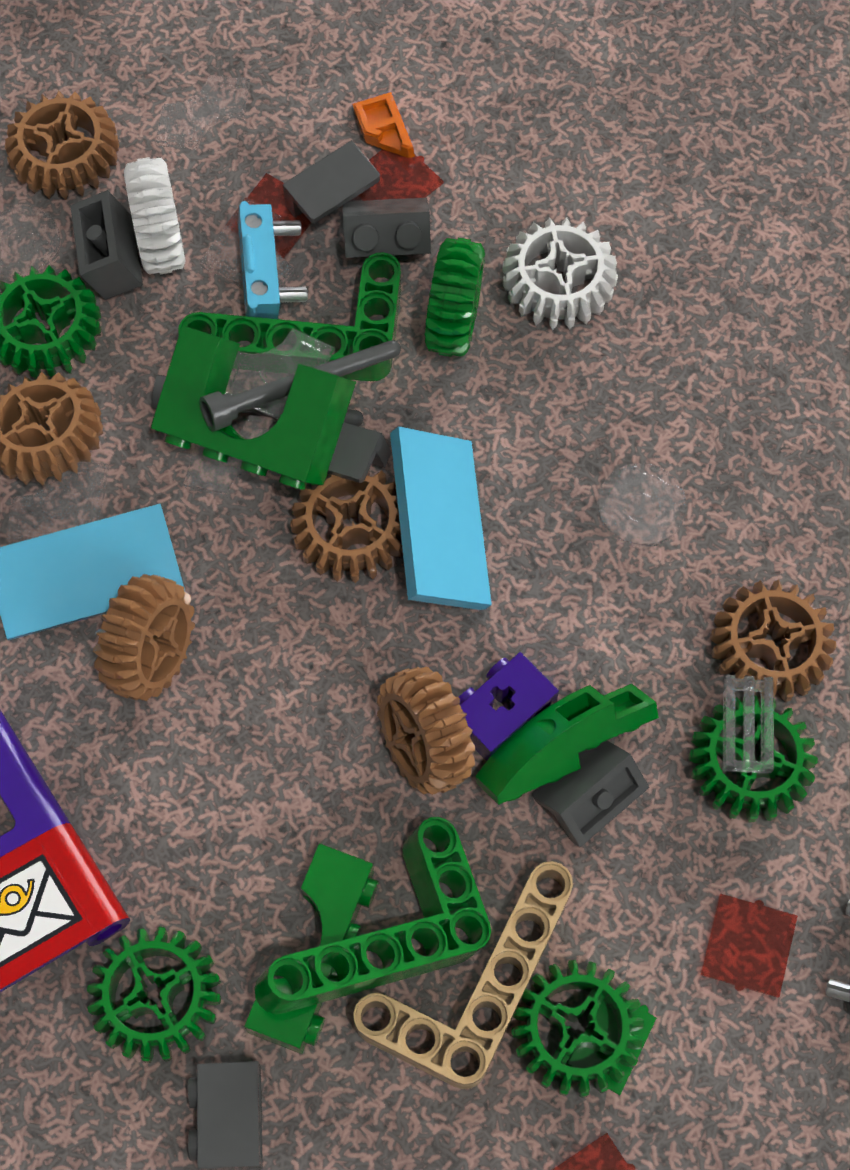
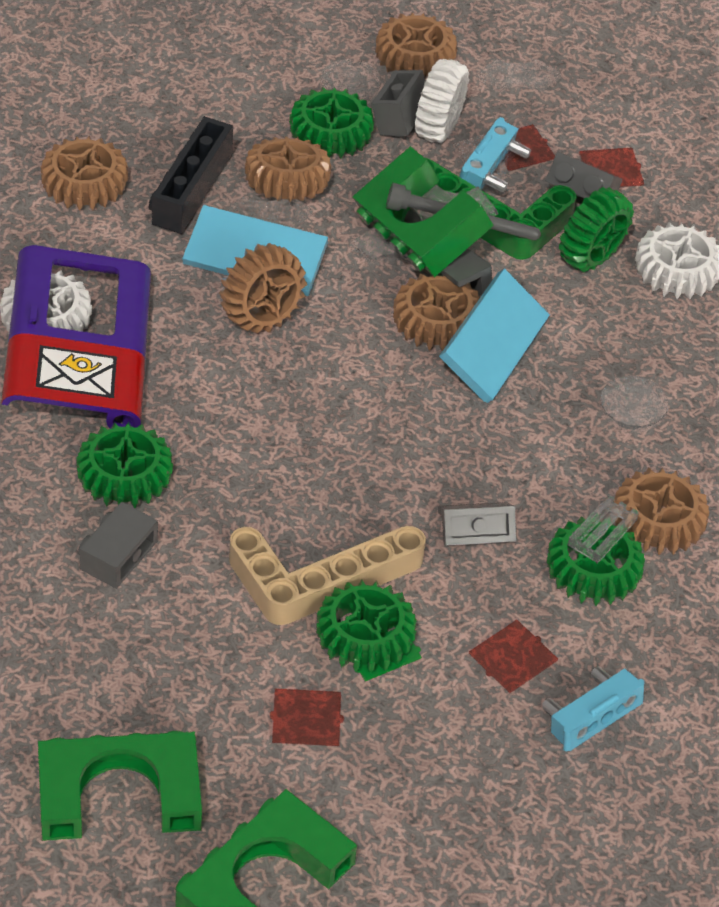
camera: 30 degrees right, 20 degrees down
(330, 183) = (565, 138): dark grey panel -> none
(336, 889) = (200, 515): green arch -> none
(383, 125) = (628, 135): orange tile -> none
(393, 944) = (278, 511): green beam -> none
(425, 730) = (394, 421): medium nougat gear -> none
(511, 680) = (456, 448): dark purple brick -> none
(551, 741) = (467, 476): green slope -> none

